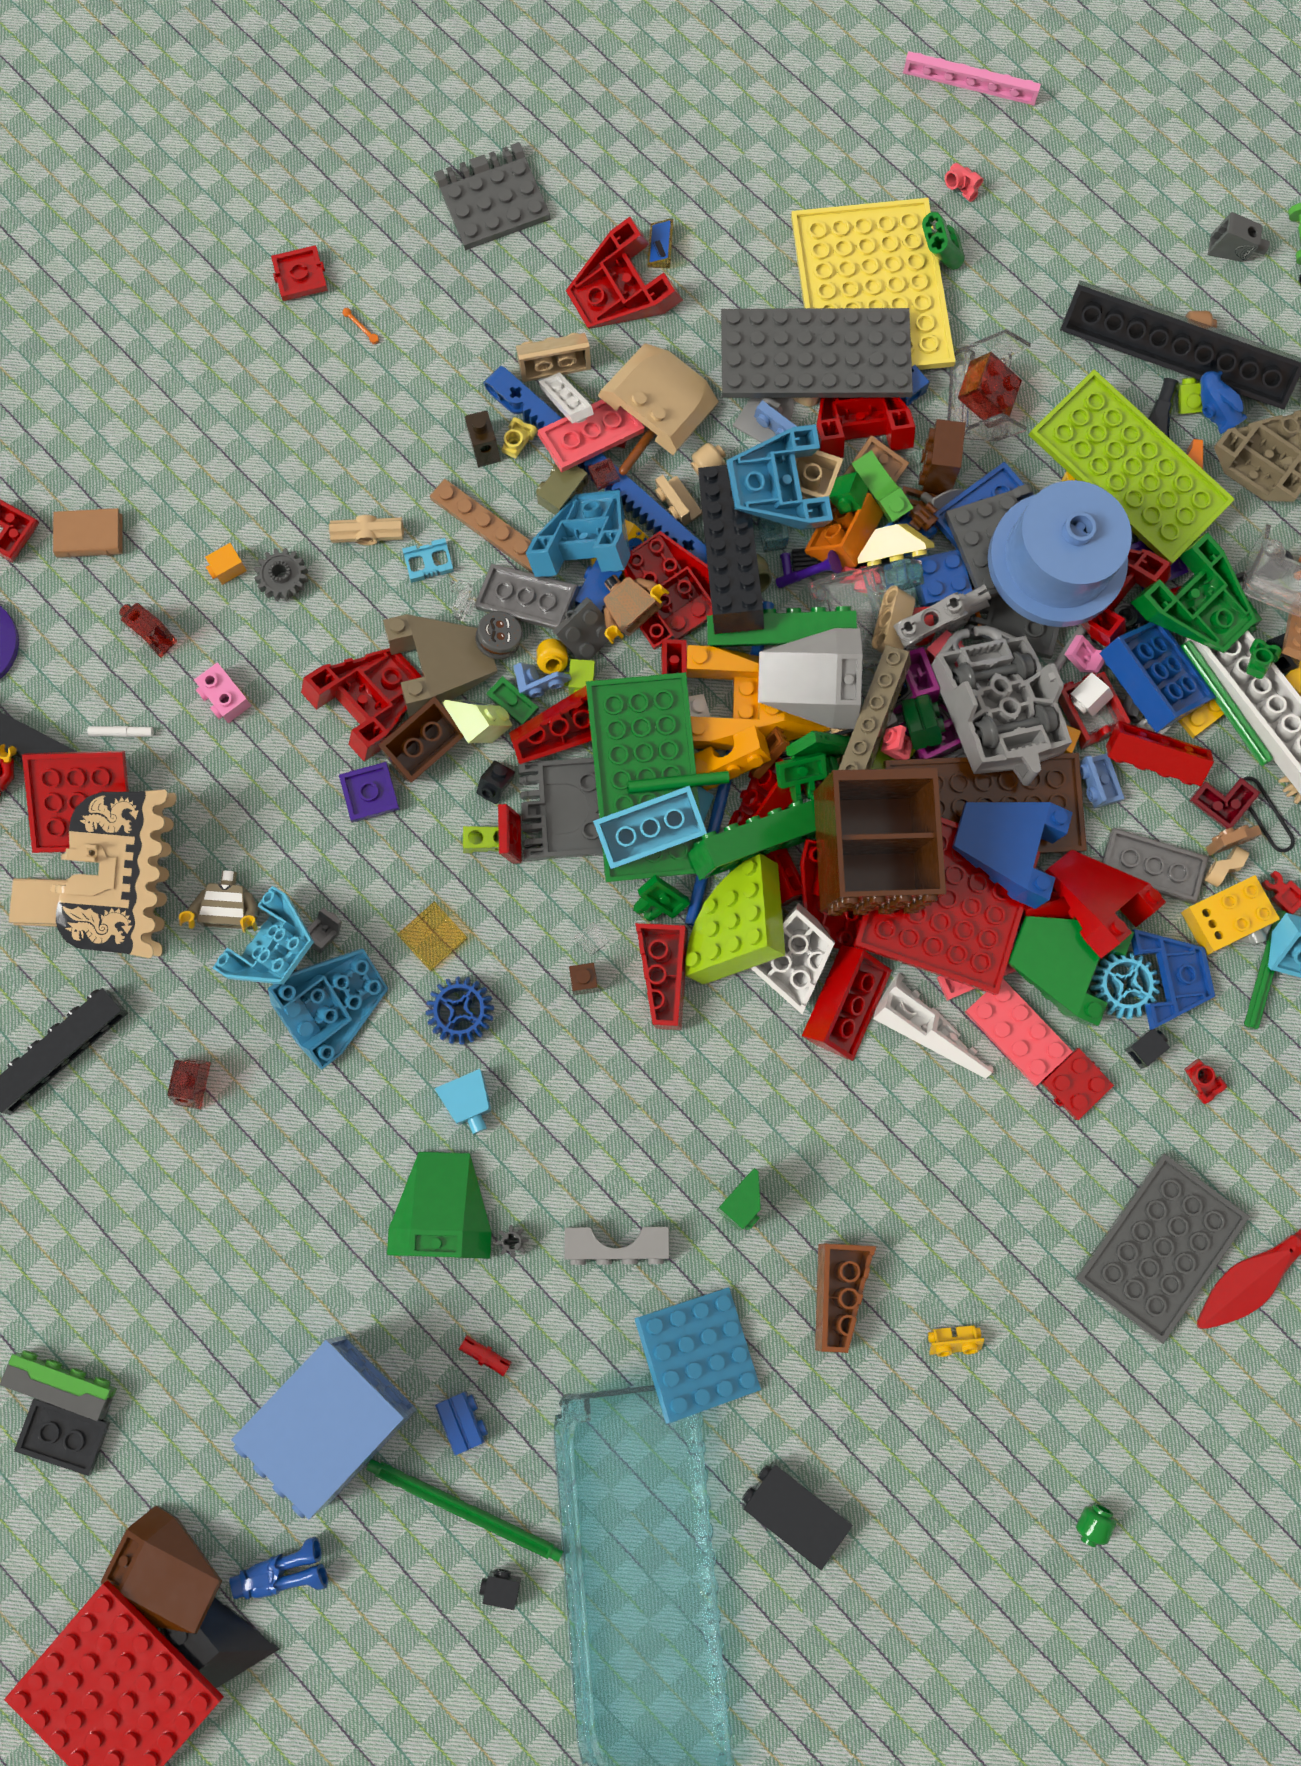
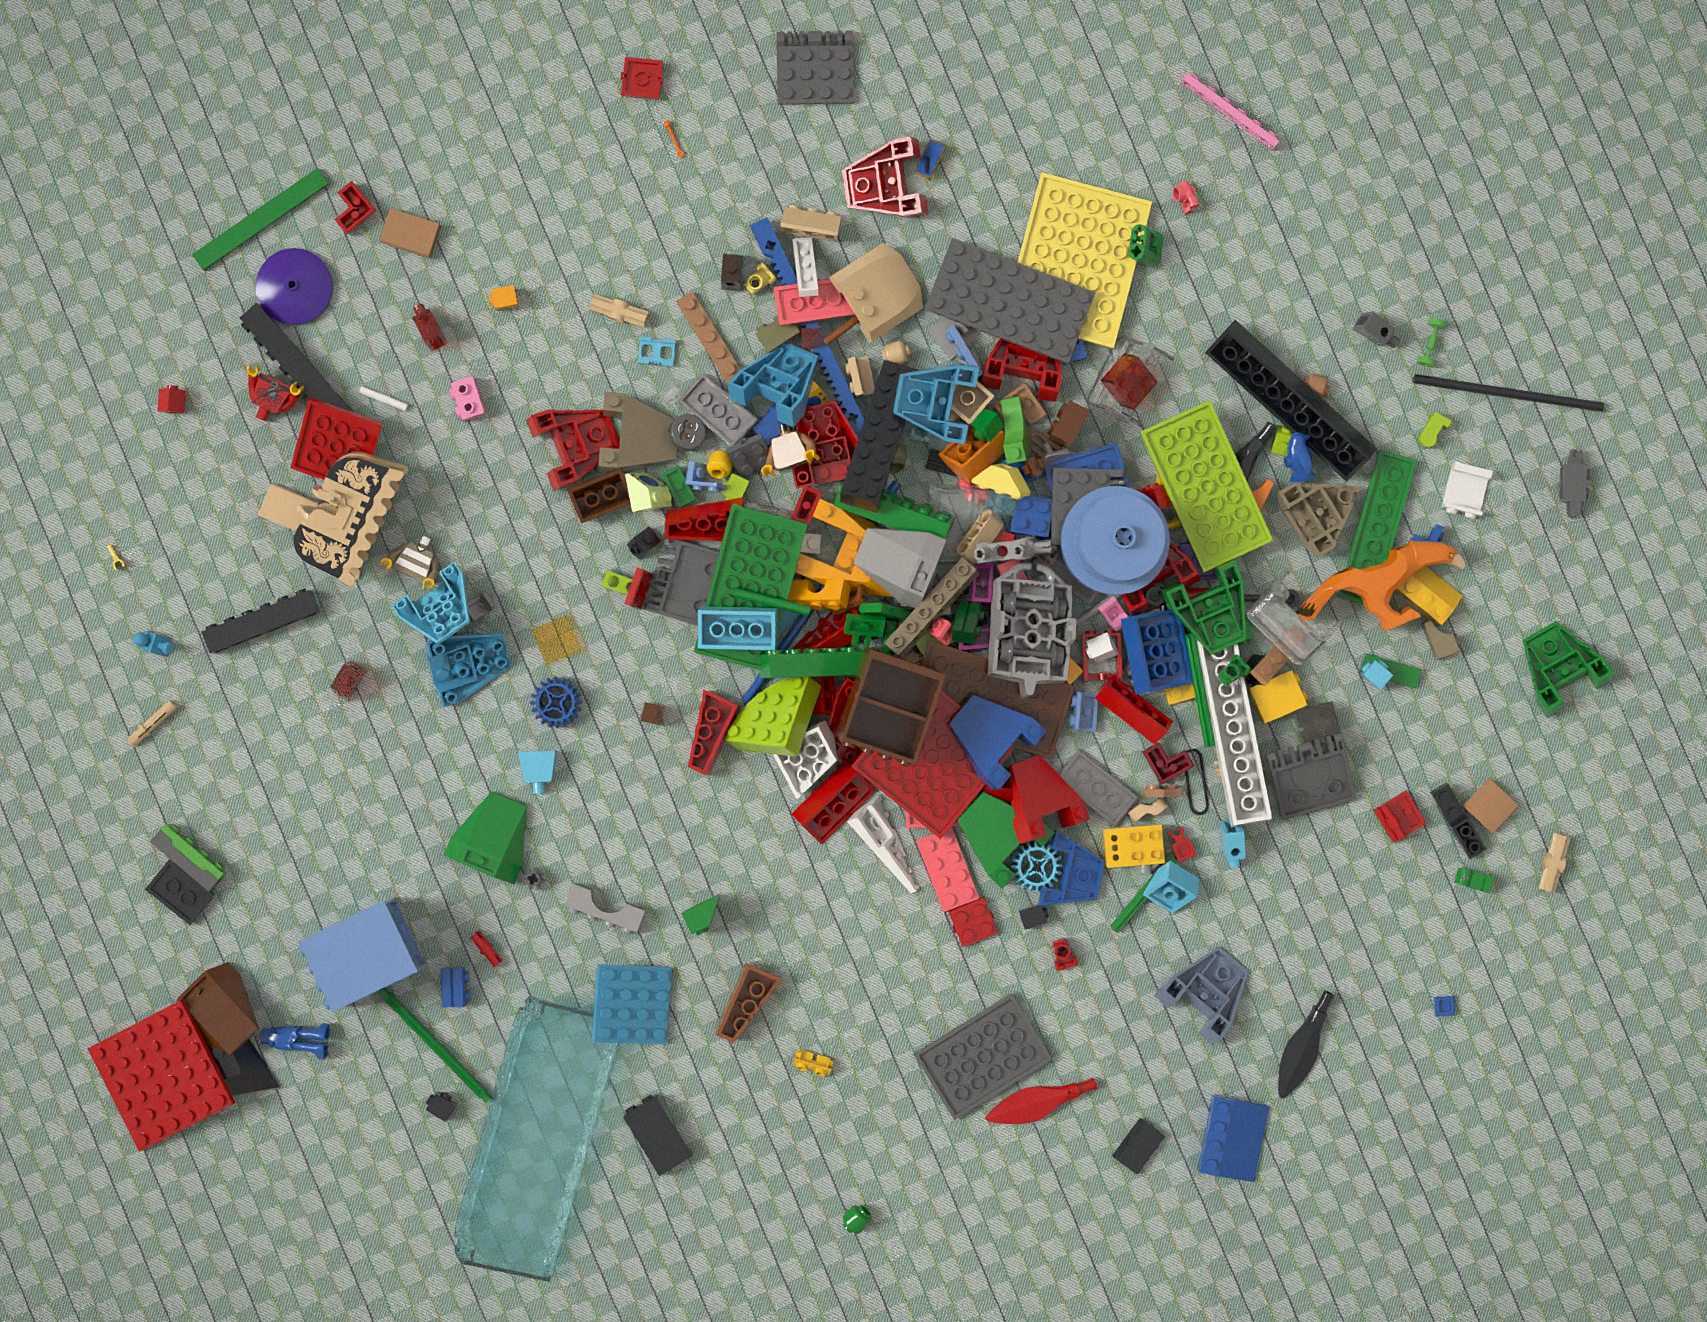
camera: 20 degrees right, 10 degrees up
(276, 564) = (550, 329): dark grey gear -> none
(369, 792) = (549, 515): dark purple plate -> none
(659, 898) = (728, 676): green hinge -> none
(832, 563) = (951, 476): dark purple piece -> none

